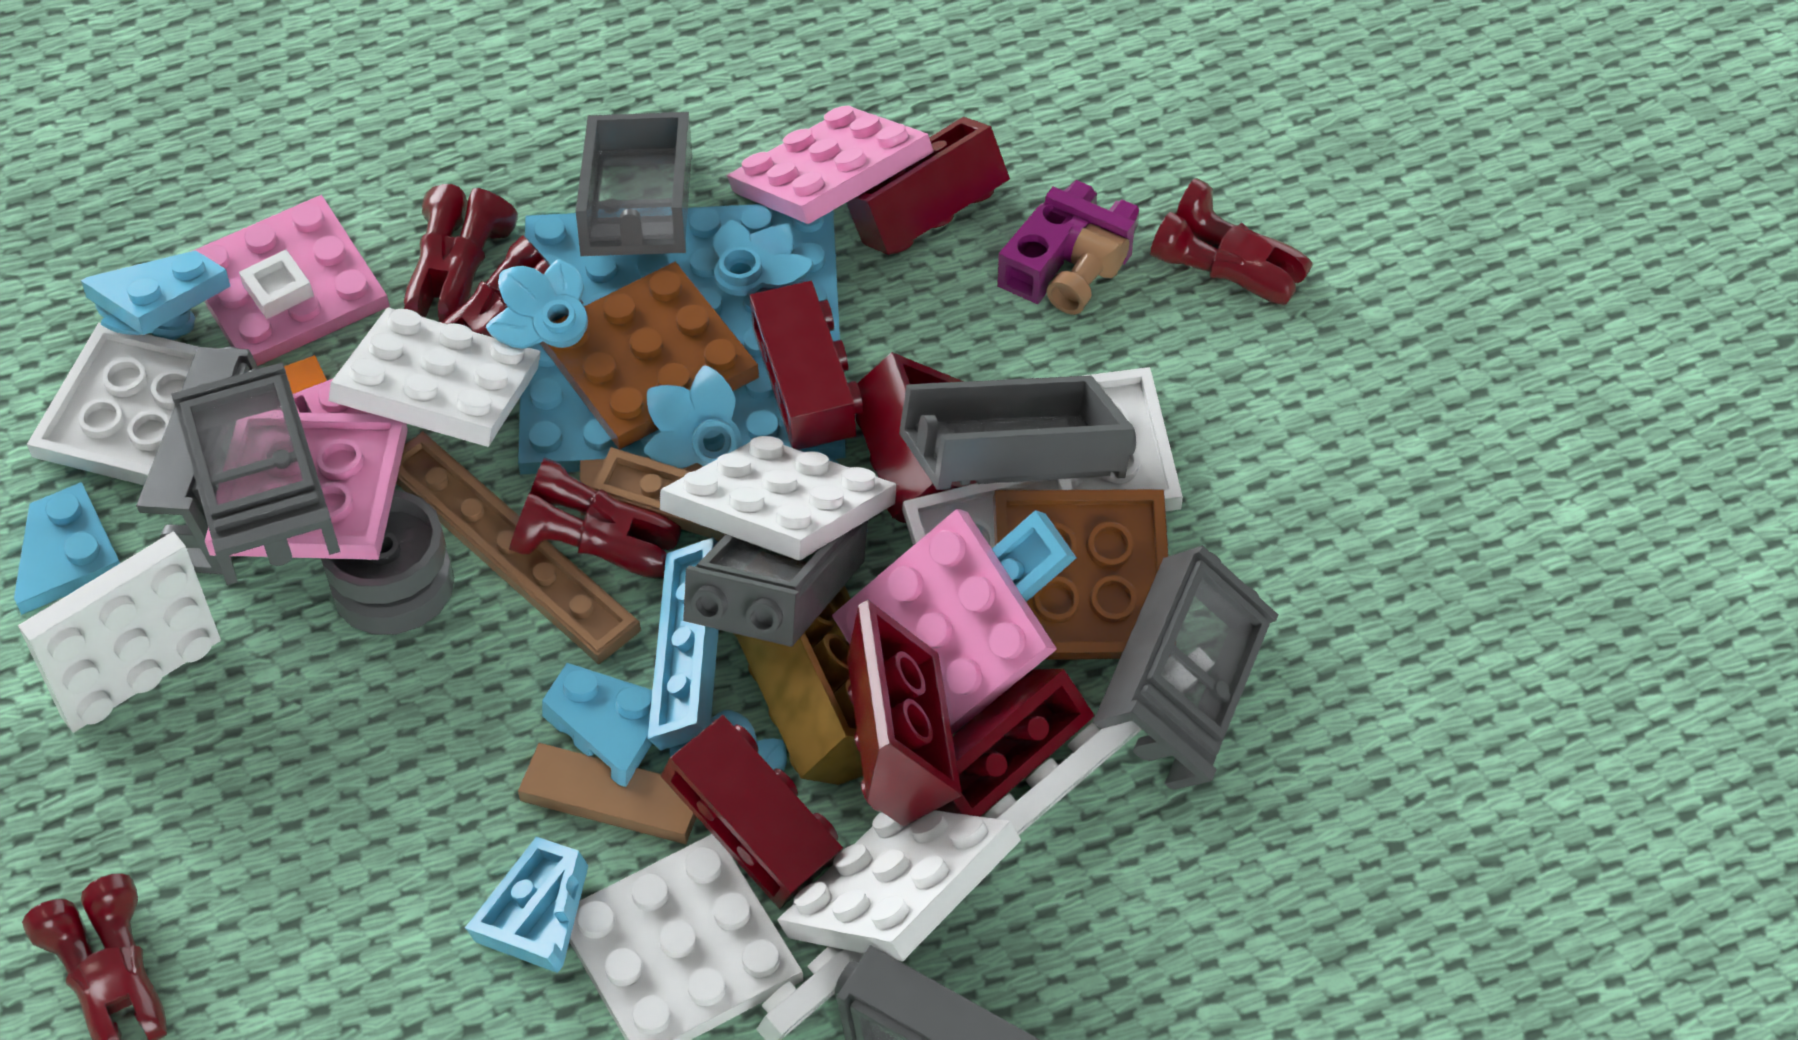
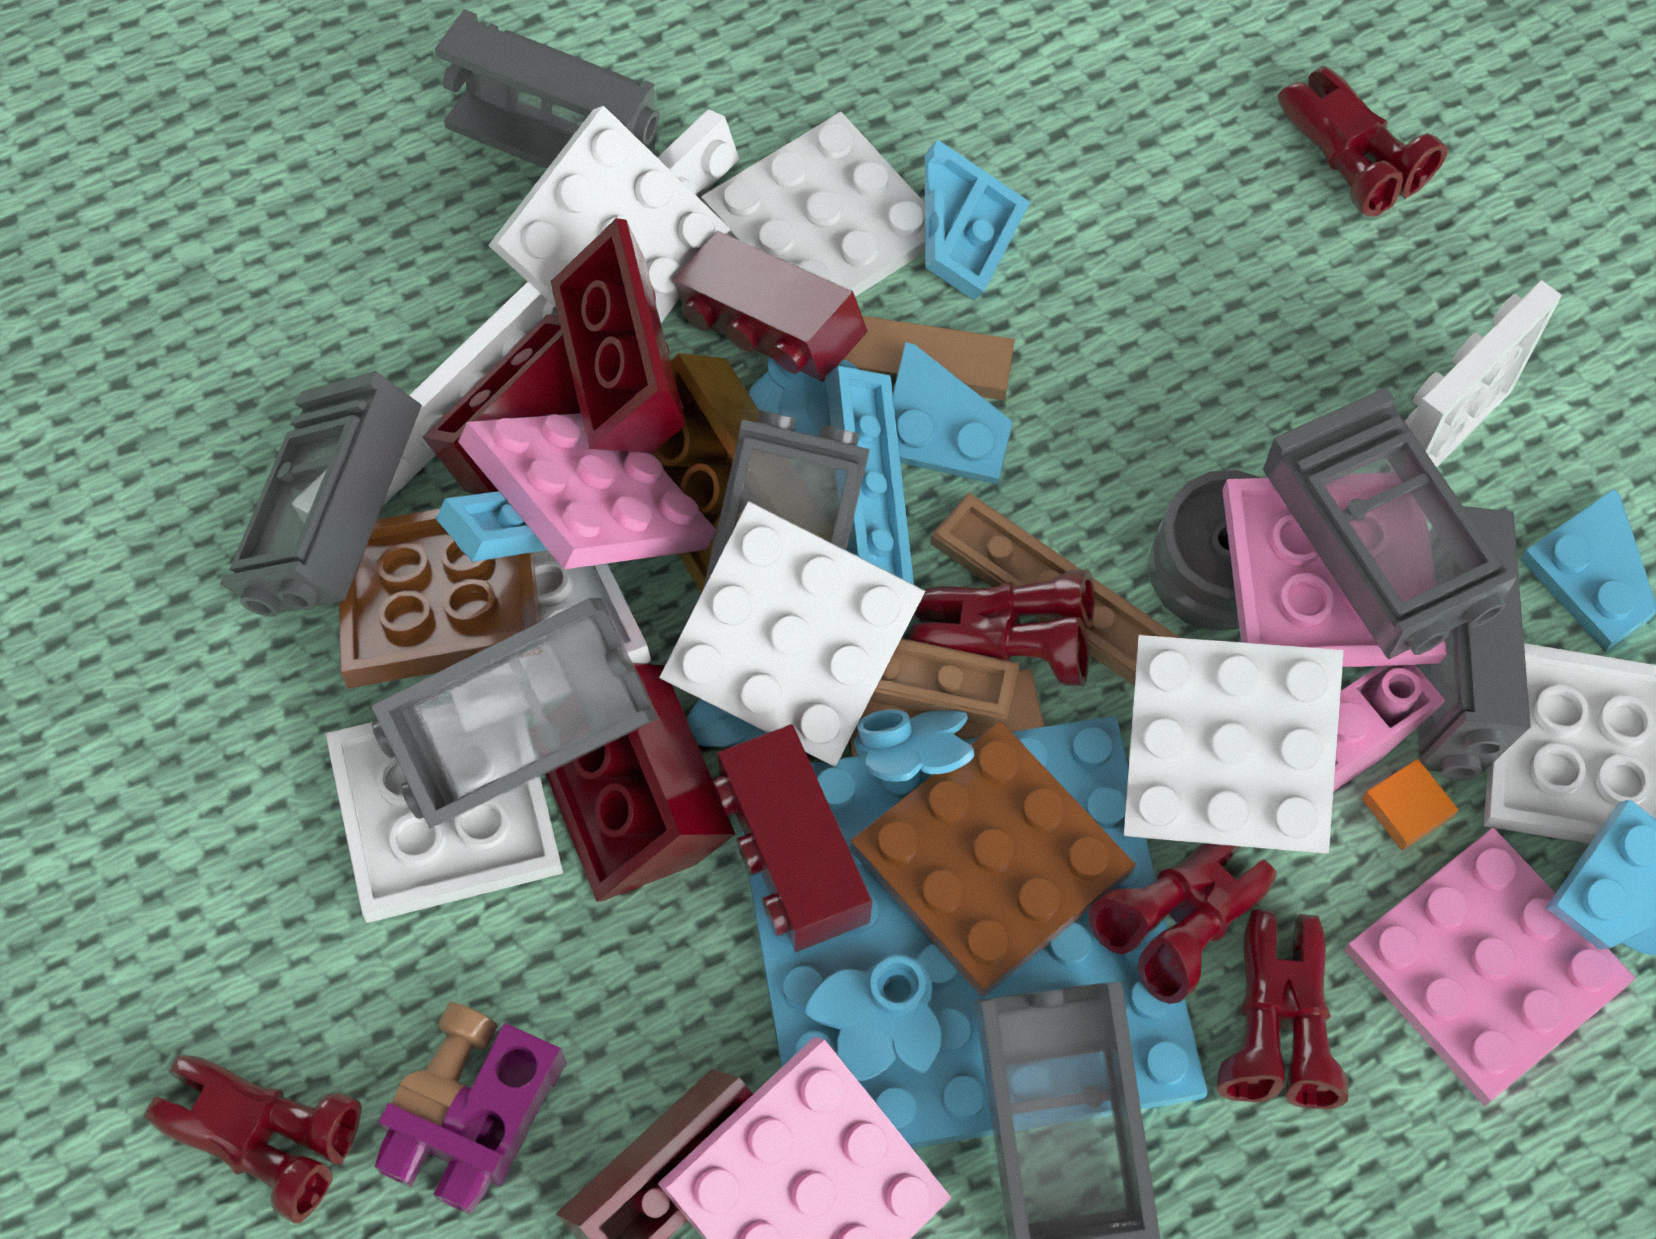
camera: 170 degrees right, 10 degrees up
(276, 284) = (1486, 901): white plate -> none
(534, 301) = (1139, 856): medium azure plate -> none

